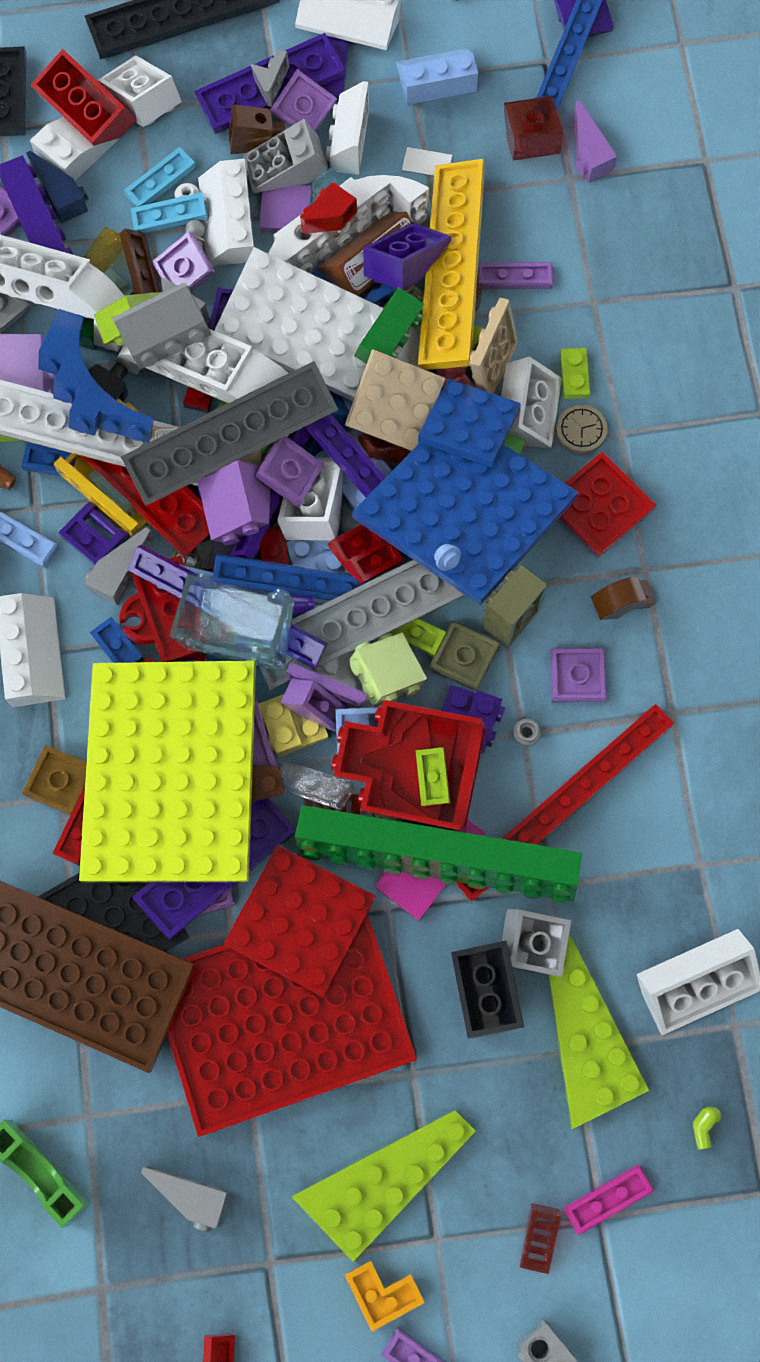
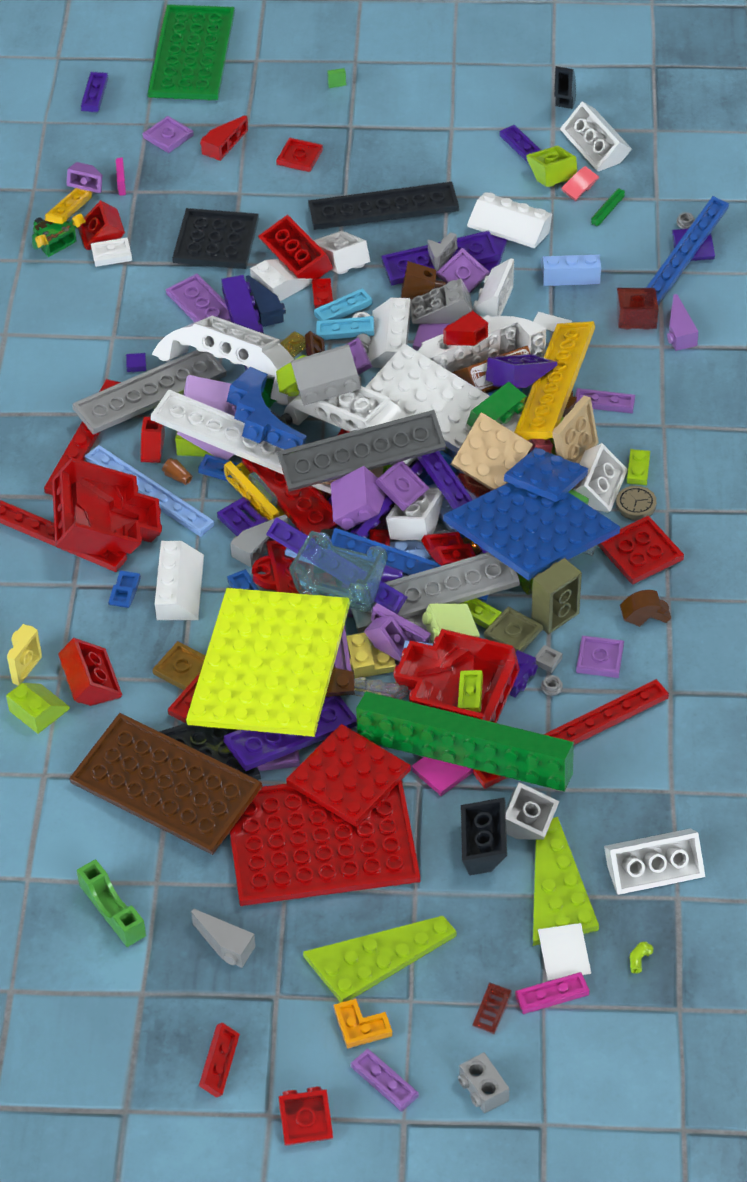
camera: 10 degrees right, 25 degrees down
(129, 159) = (322, 291): none -> red plate
(447, 557) = (508, 541): light blue plate -> none
(515, 692) = (548, 658): none -> light grey plate
(613, 1137) = (564, 951): none -> white sticker

